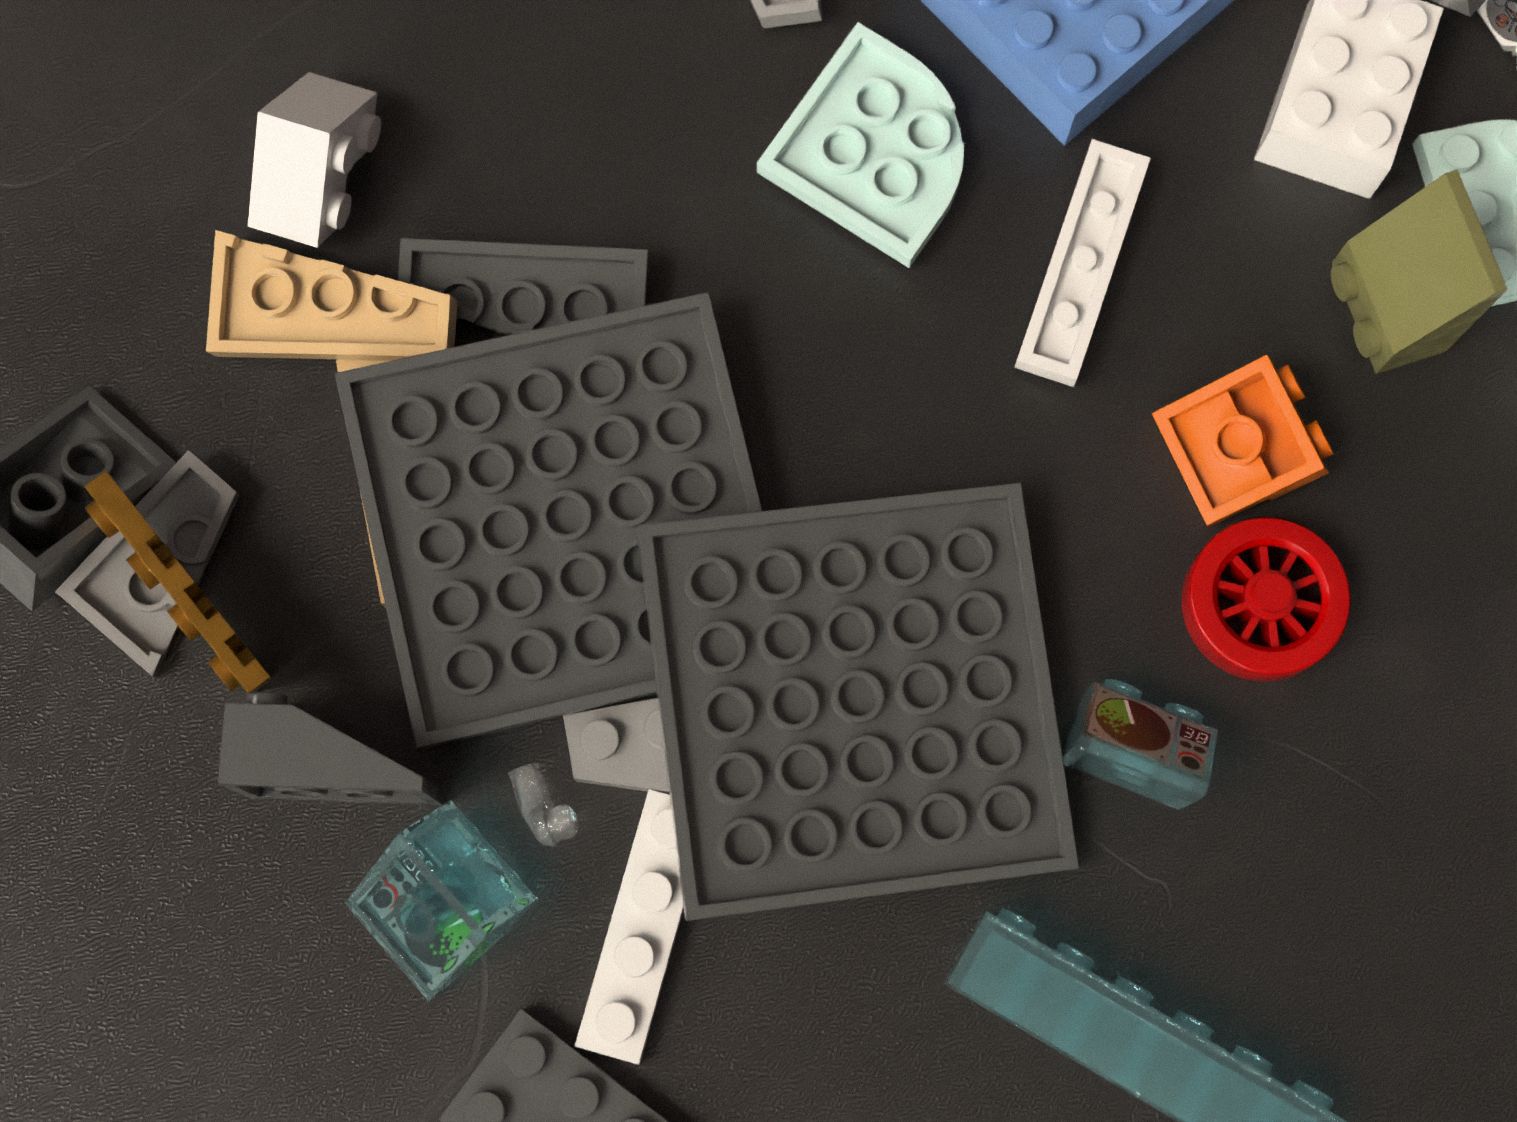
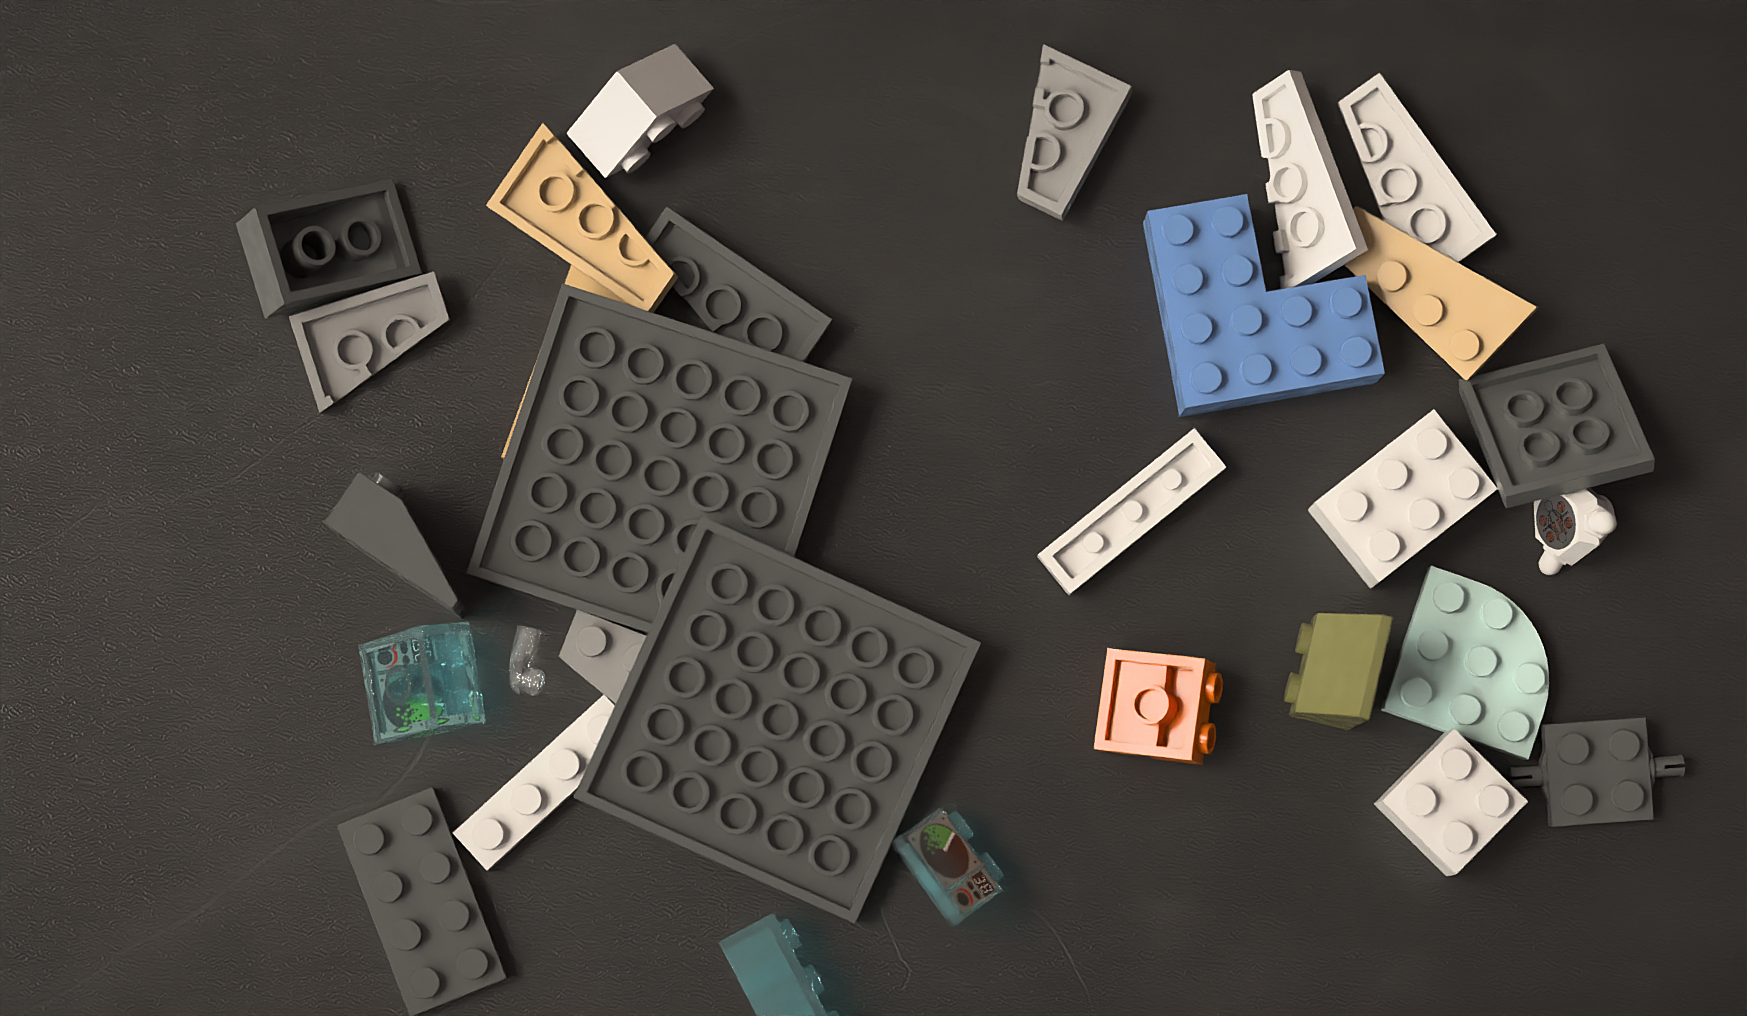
camera: 25 degrees right, 5 degrees up
(158, 565) = (373, 388): pearl gold wing -> none
(872, 146) = (1039, 337): light aqua plate -> none
(1265, 600) = (1101, 823): red wheel -> none

